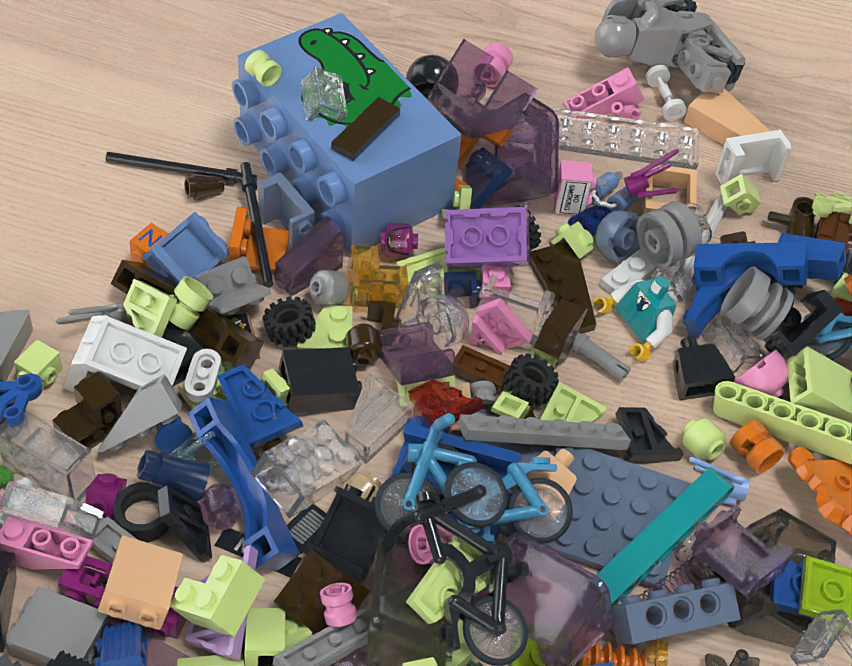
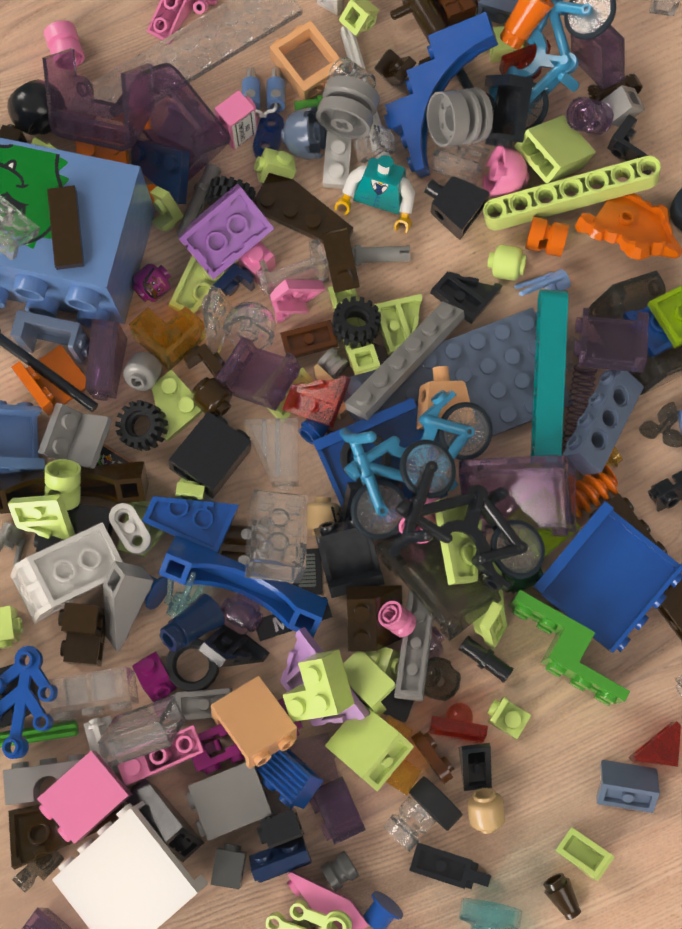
camera: 35 degrees left, 25 degrees up
(638, 182) = (282, 74): magenta plant -> none
(784, 261) = (455, 66): blue arch -> none

